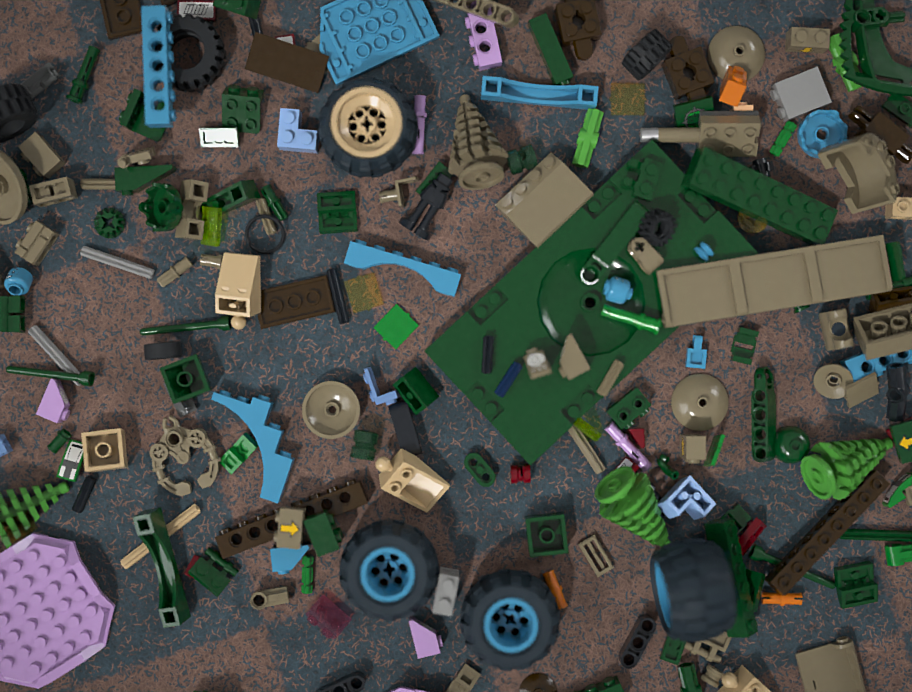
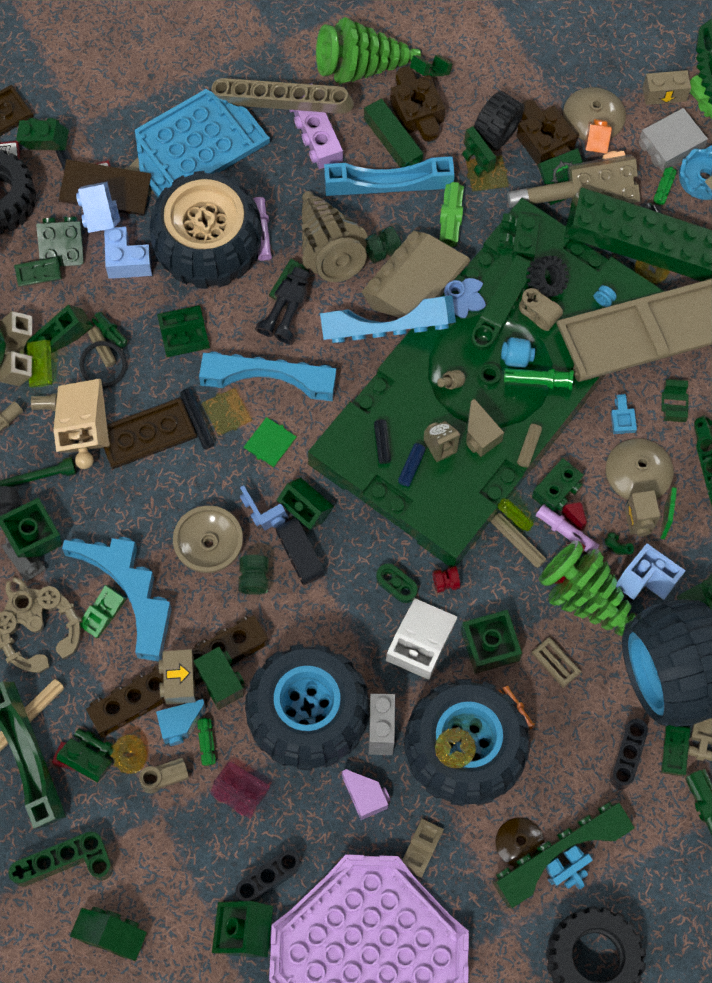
camera: 15 degrees left, 20 degrees down
(182, 652) = (58, 864): none -> dark green beam
(250, 581) = (134, 745): none -> clear yellow gear
(277, 90) = (98, 208): none -> light blue brick
(397, 193) = (248, 300): dark tan bracket -> none
(411, 480) = (320, 608): tan slope -> none
(476, 234) = (430, 312): none -> arch
(491, 520) = (421, 638): none -> white slope
(497, 628) = (456, 759): none -> clear yellow gear
(557, 305) = (452, 379): none -> dark tan cylinder
(584, 233) = (467, 298): none -> medium blue plate
(620, 76) = (476, 146): none -> dark green plate

